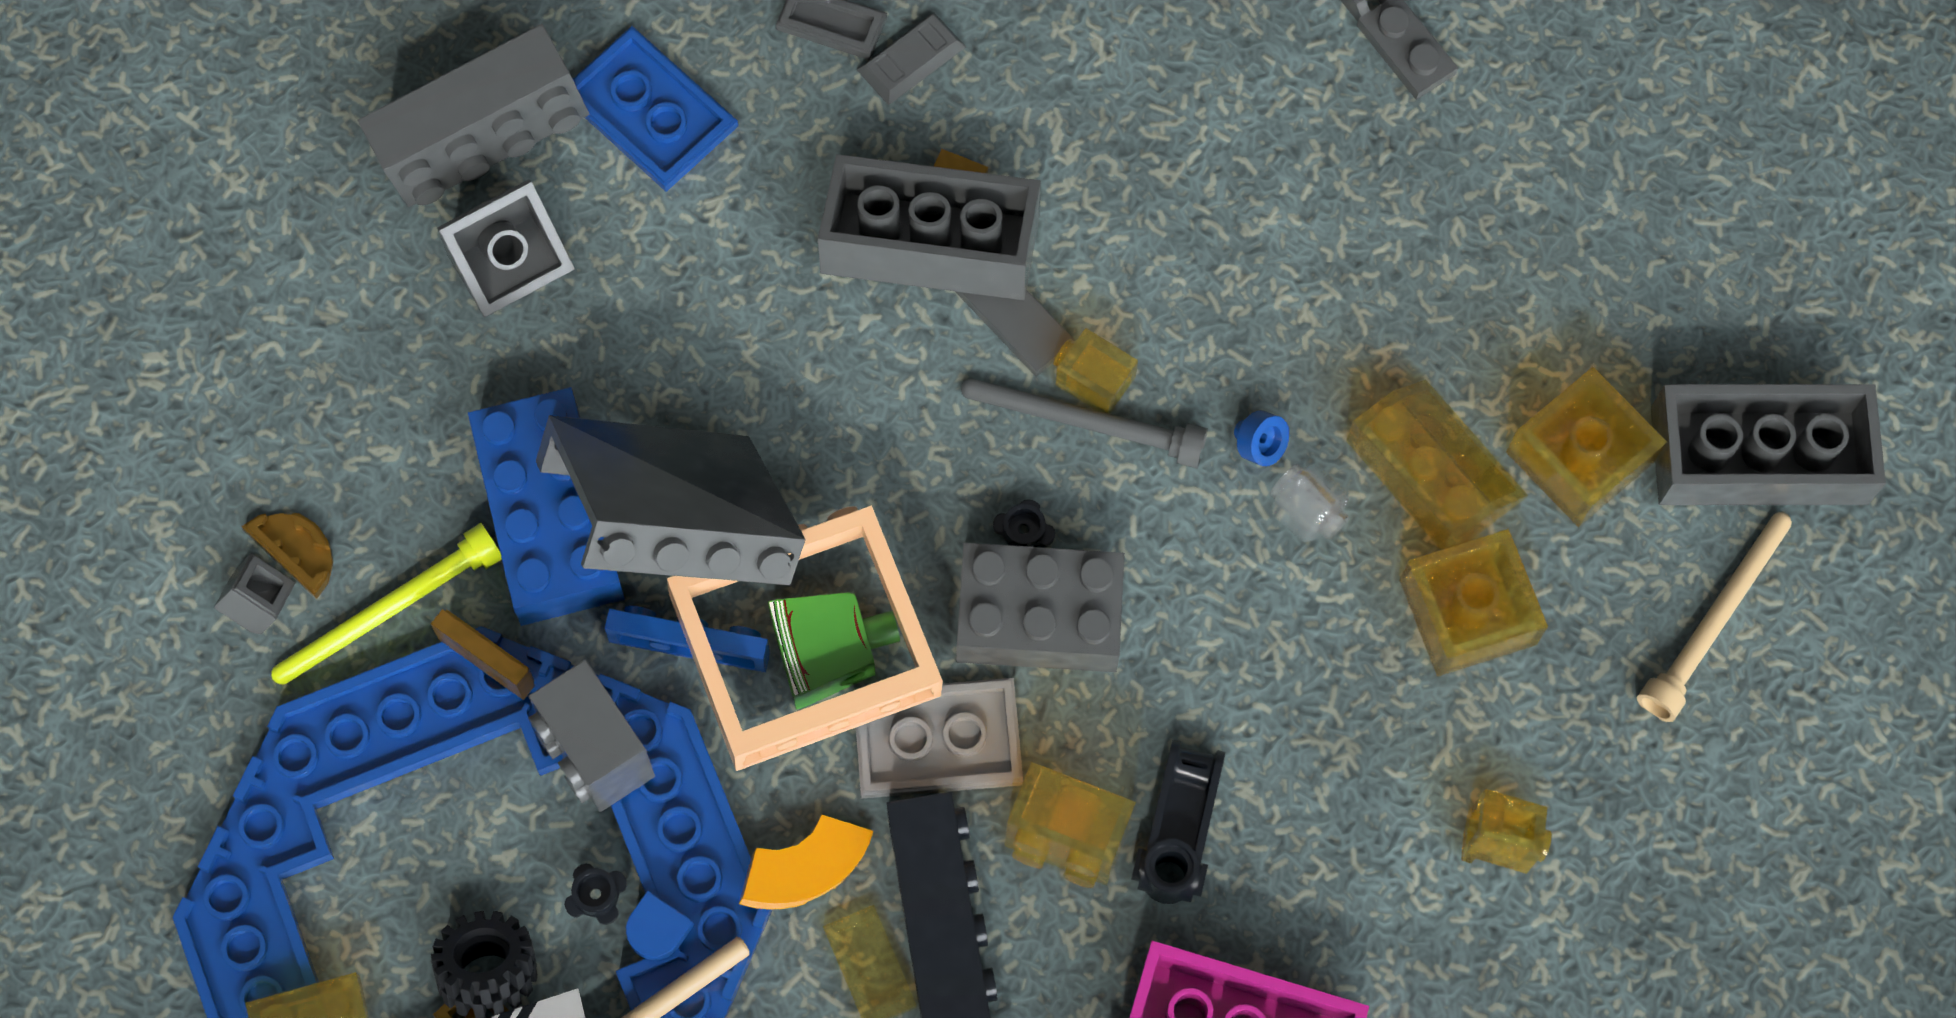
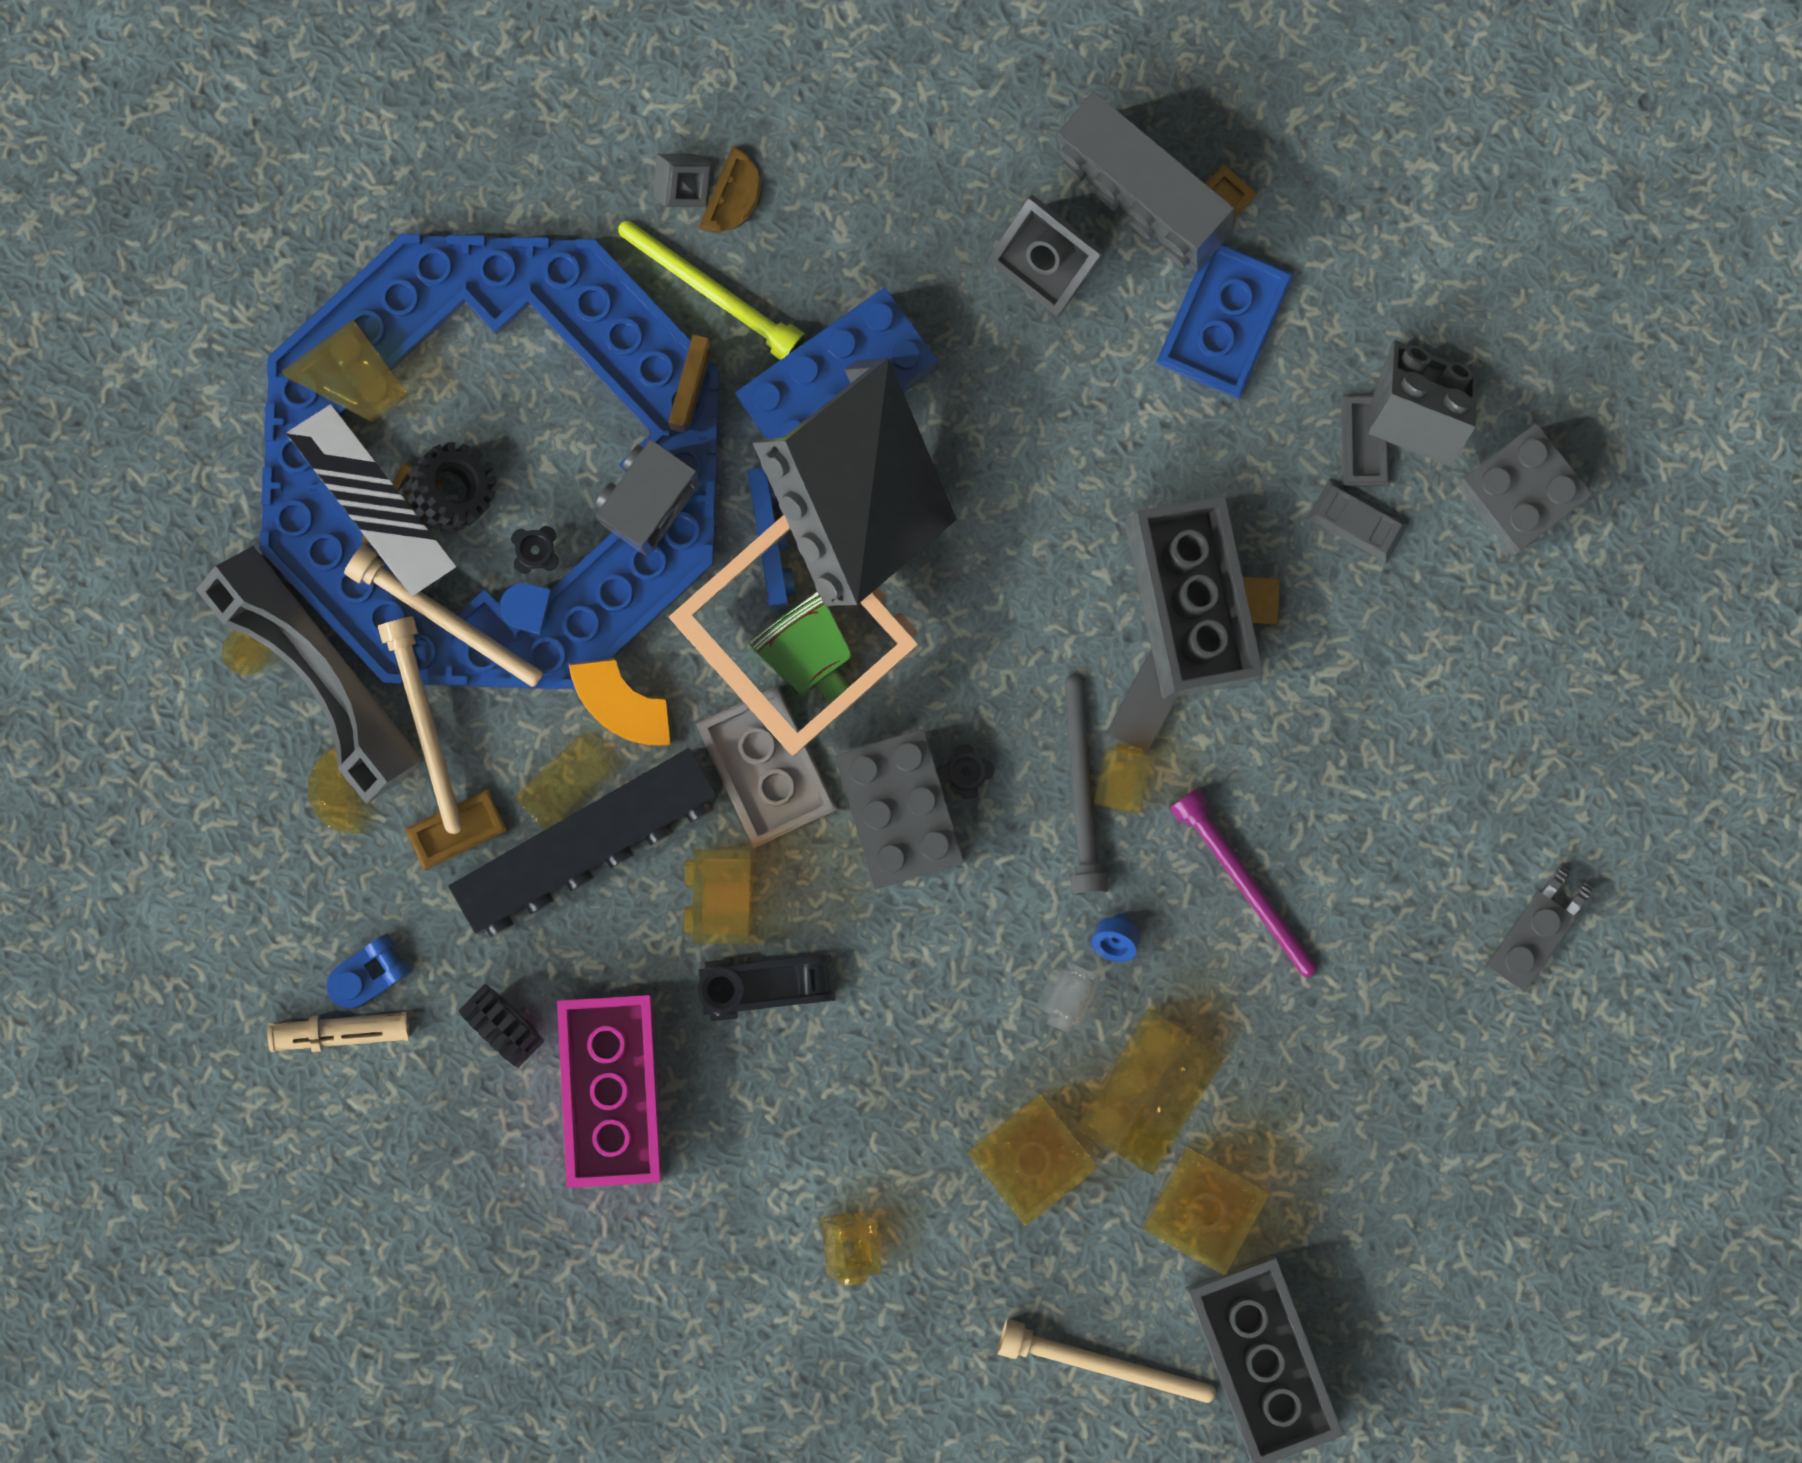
camera: 75 degrees right, 15 degrees up
(1156, 314) = (1195, 812): none -> magenta piece

